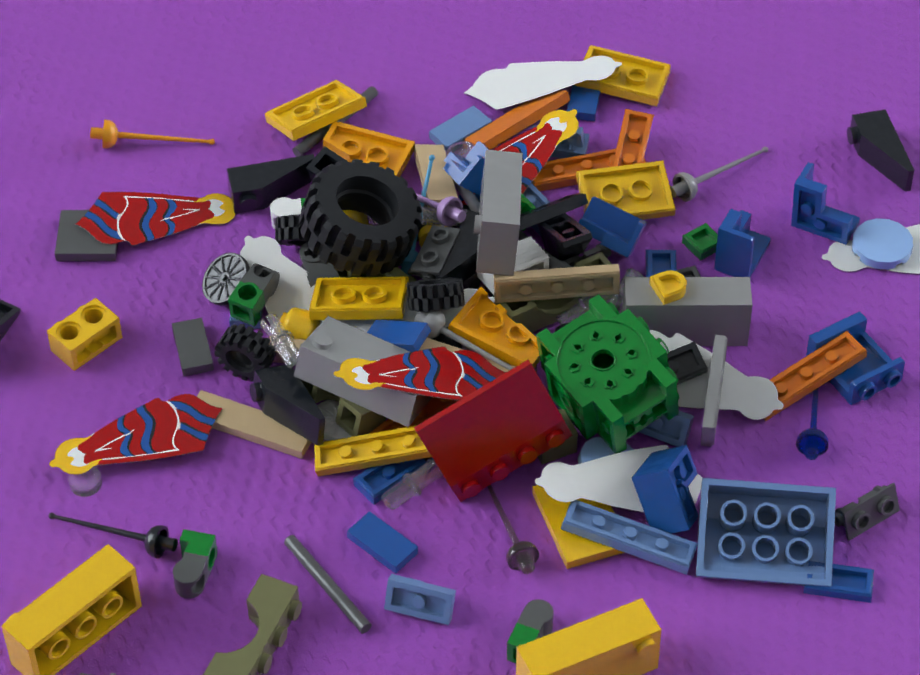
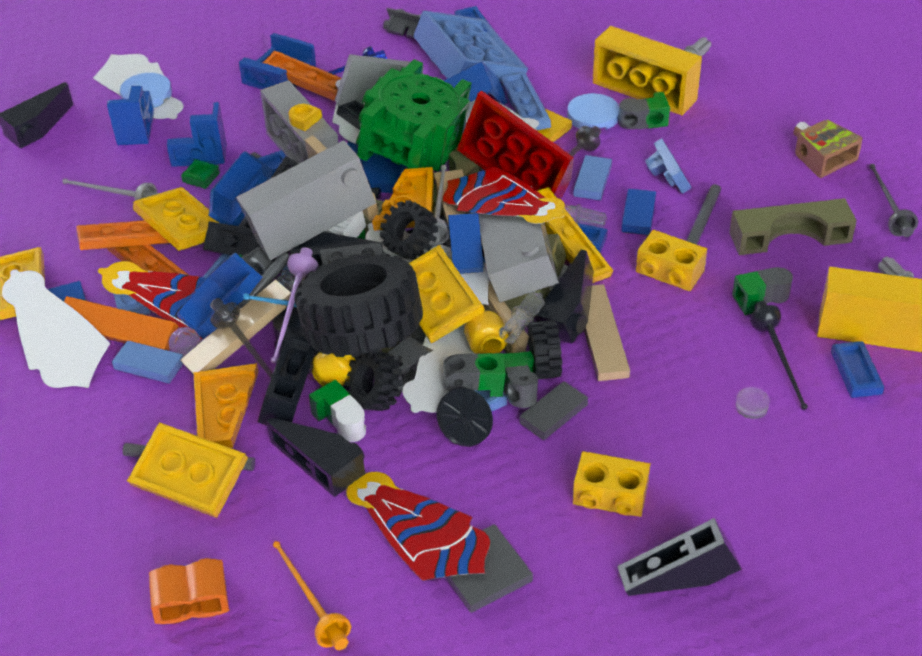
camera: 120 degrees left, 5 degrees down
(41, 573) = (857, 369): none -> blue tile
(144, 434) = (673, 379): red sticker -> none
(204, 77) = (188, 591): none -> orange brick
(221, 316) = (520, 380): none -> dark grey leg
(286, 513) = (671, 260): none -> yellow brick
(441, 158) = (227, 316): none -> clear smoke sword
(463, 534) = (592, 177): none -> medium blue tile
(575, 594) = (593, 111): none -> light blue tile

